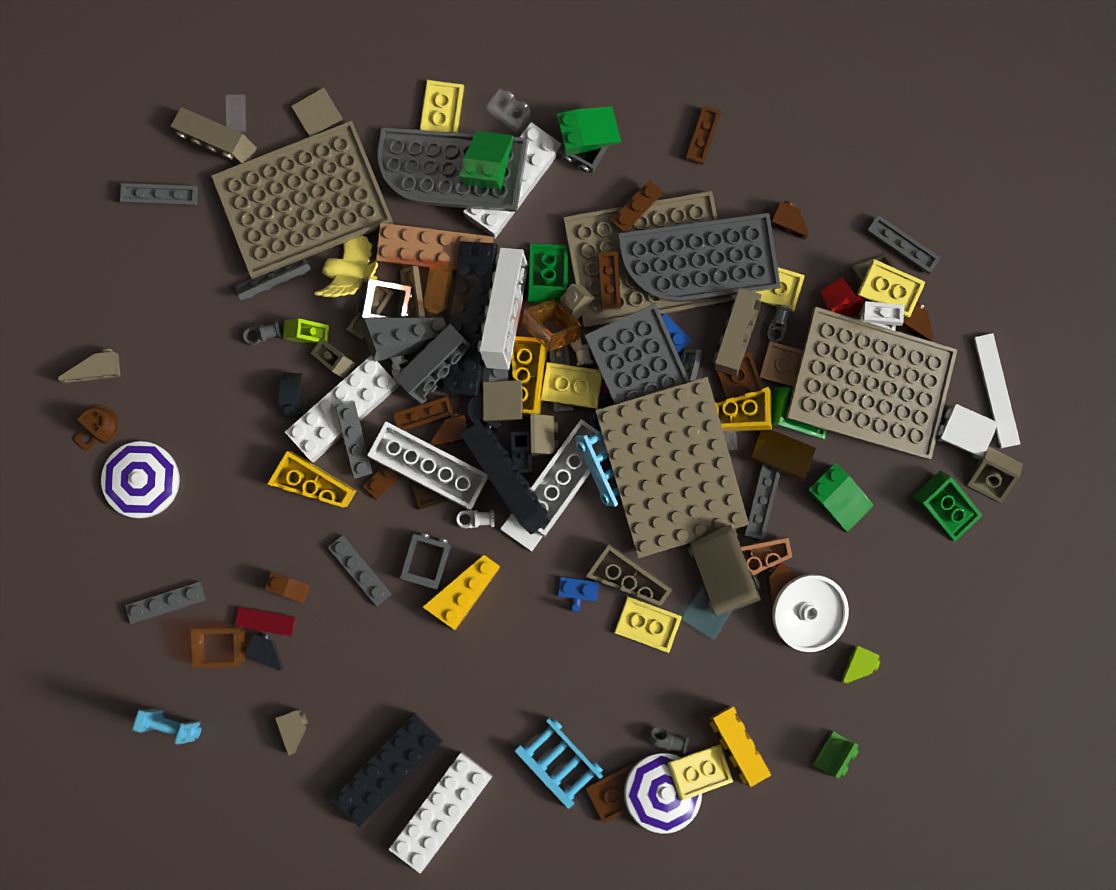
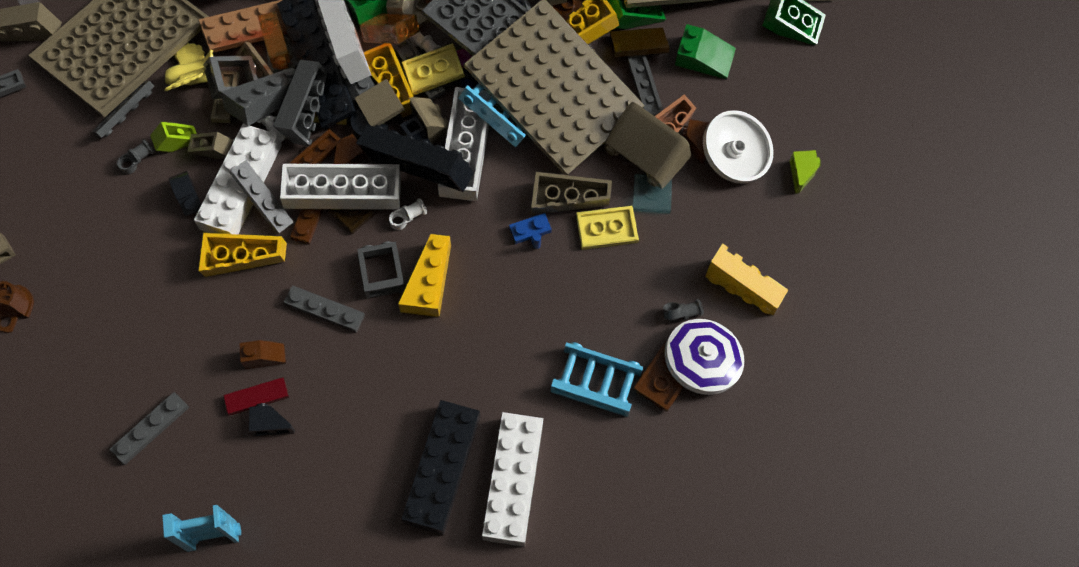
camera: 30 degrees left, 15 degrees down
(140, 479) = (74, 332): dish -> none
(198, 646) = (200, 448): clear orange window -> none
(292, 728) = (330, 477): dark tan slope -> none
(518, 533) = (454, 207): white tile -> none
(700, 772) = (725, 321): light yellow tile -> none
(836, 755) = (832, 249): bright green bracket -> none

